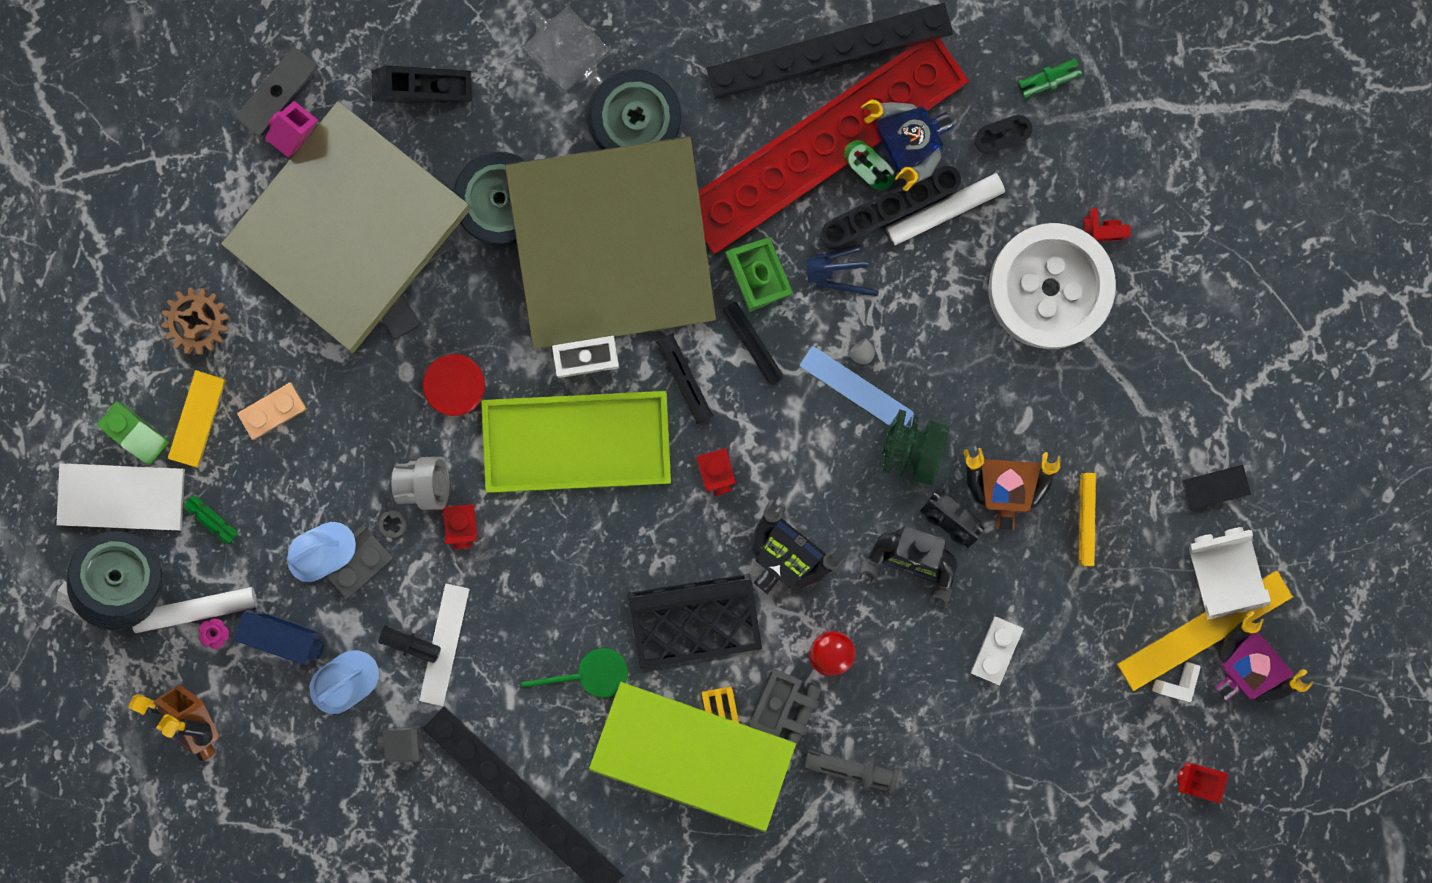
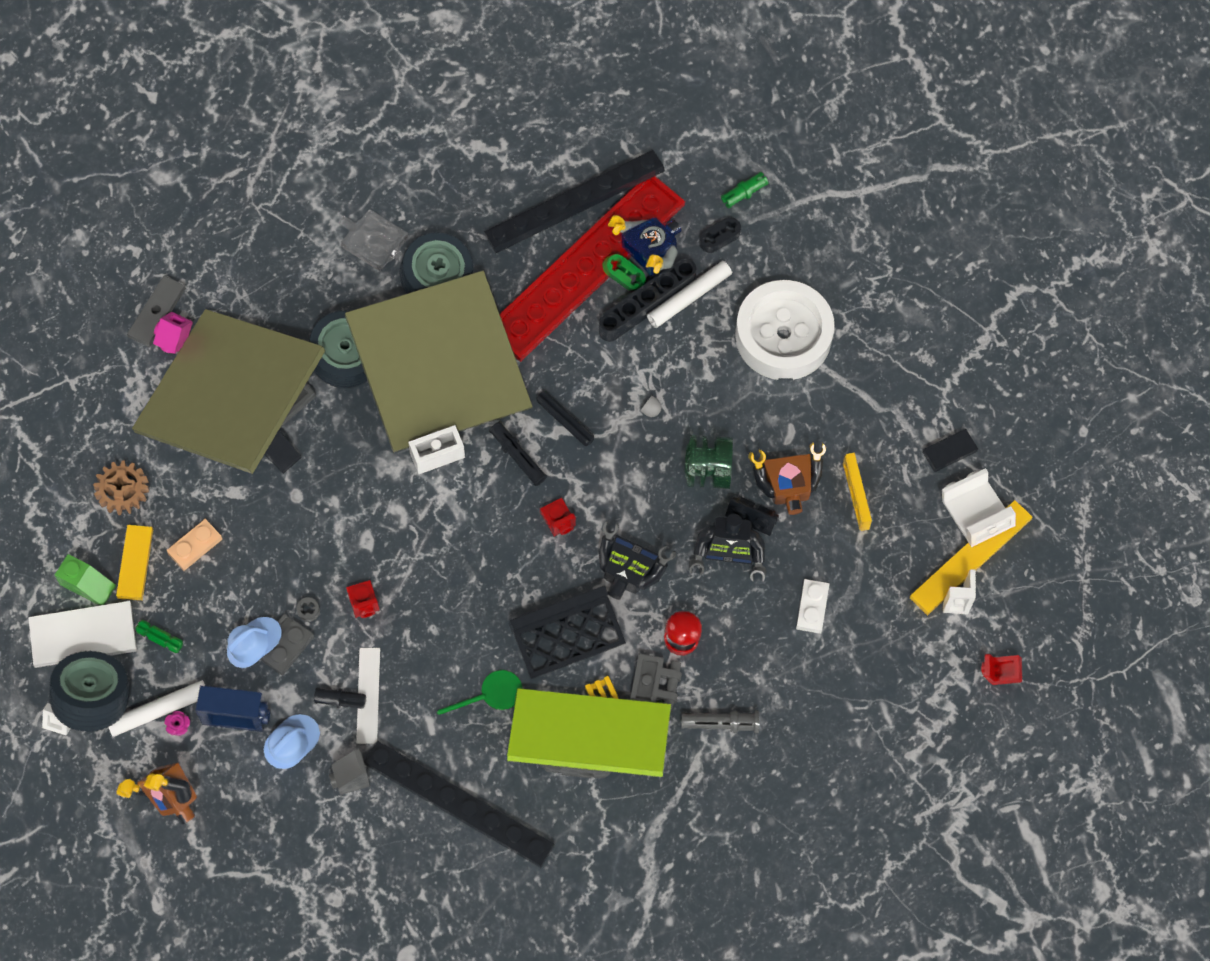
camera: 15 degrees left, 20 degrees down
(420, 85) = (266, 284): black slope -> none
(422, 483) = (325, 569): light grey piece -> none
(454, 385) = (336, 494): red tile -> none
(576, 441) = (442, 518): lime tile -> none
(758, 273) = (556, 367): bright green slope -> none
(821, 269) = (604, 354): dark blue plant -> none
(853, 386) = (647, 435): light blue sticker -> none
(1110, 231) = (820, 282): red bracket -> none
(1255, 666) = (1017, 572): torso -> none

